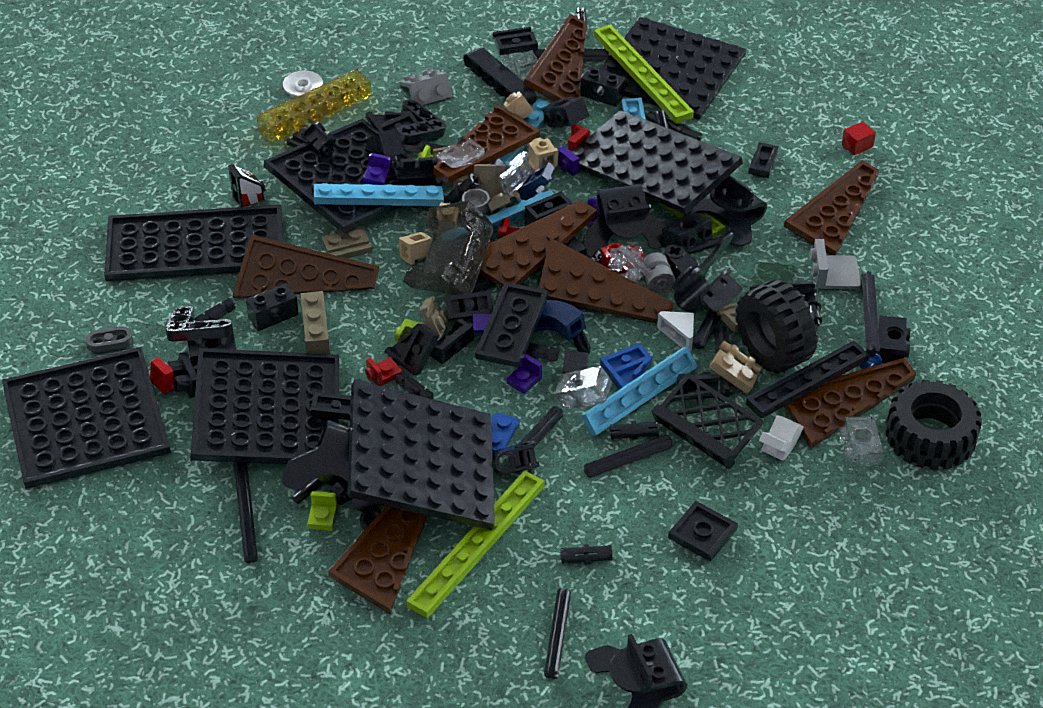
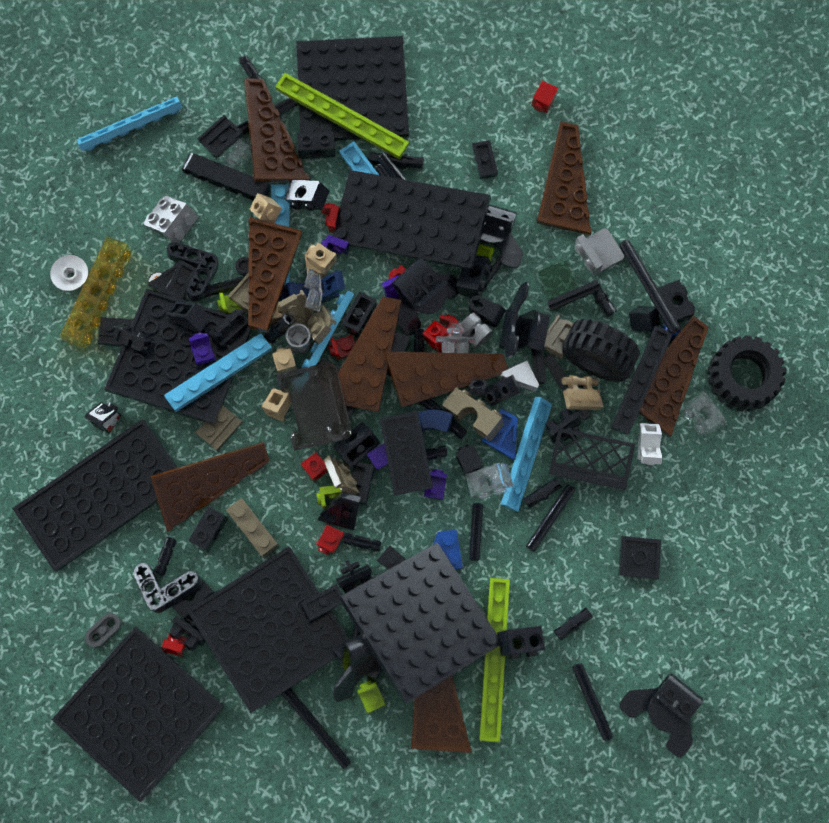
camera: 30 degrees left, 30 degrees up
(411, 303) = (314, 467): none -> red brick
(434, 12) = (124, 126): none -> medium azure plate
(461, 155) = (262, 300): clear slope -> none
(518, 530) = (521, 642): none -> black brick
(520, 457) = (476, 572): black piece -> none
(612, 336) = (461, 404): none -> dark tan arch
(626, 312) = (478, 387): none -> black tile
(653, 327) = (502, 390): none -> black hips
(845, 334) = (644, 318): none -> black panel

